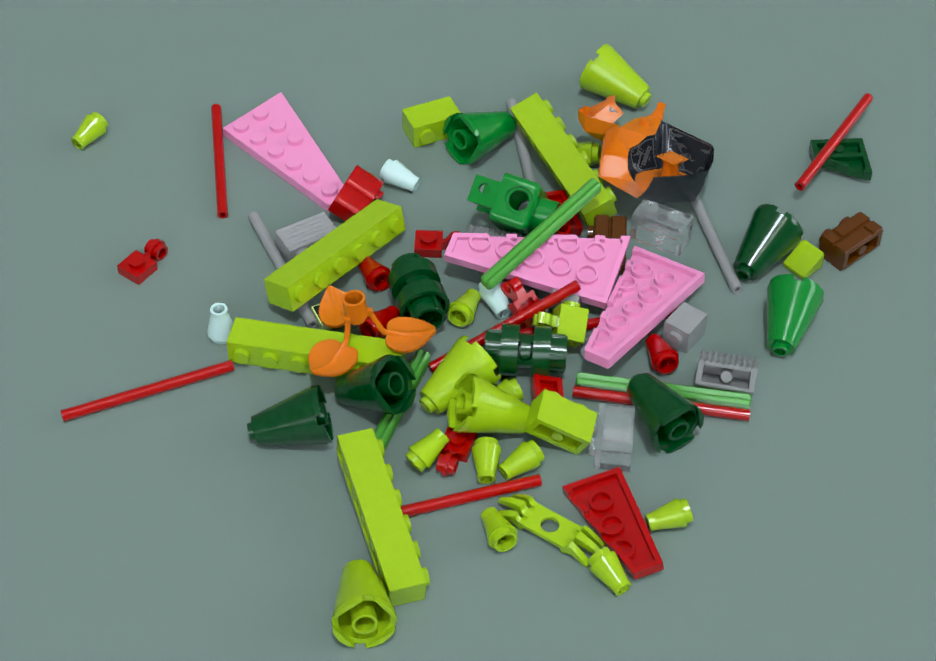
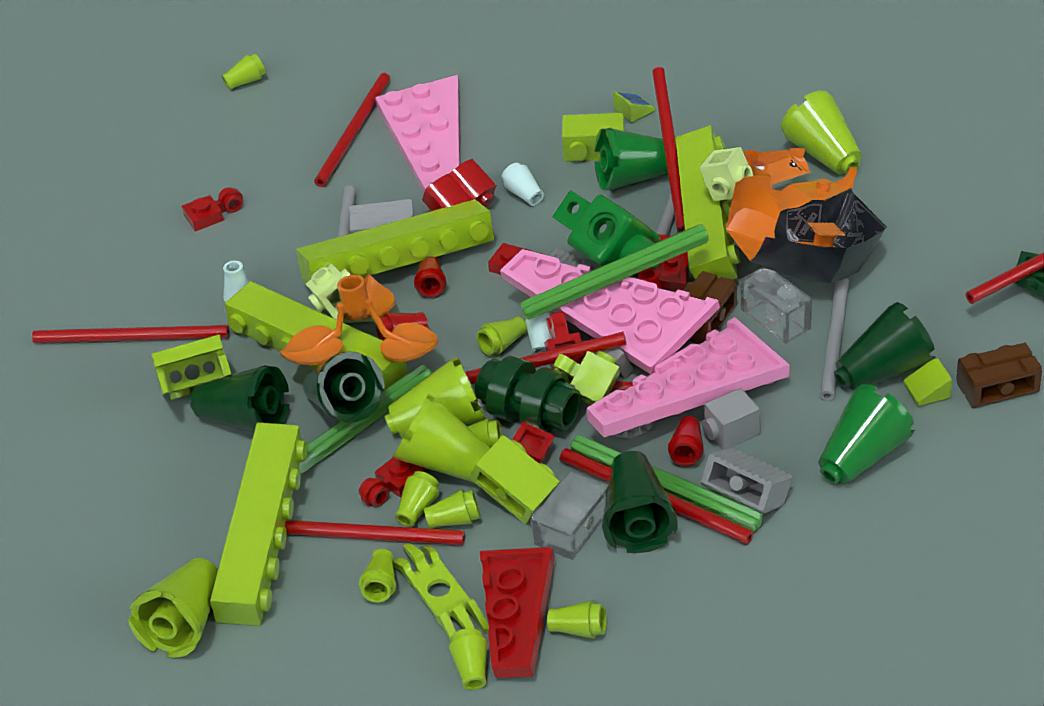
camera: 30 degrees right, 5 degrees down
(236, 402) = (190, 354): none -> lime piece
(318, 308) = (325, 289): none -> yellowish green brick
(418, 289) = (455, 303): dark green piece -> none
(425, 451) = (353, 470): lime cone -> none
(441, 87) = (631, 105): none -> lime slope
(510, 119) = (669, 144): none -> red piece
(583, 131) = (723, 170): none -> yellowish green brick

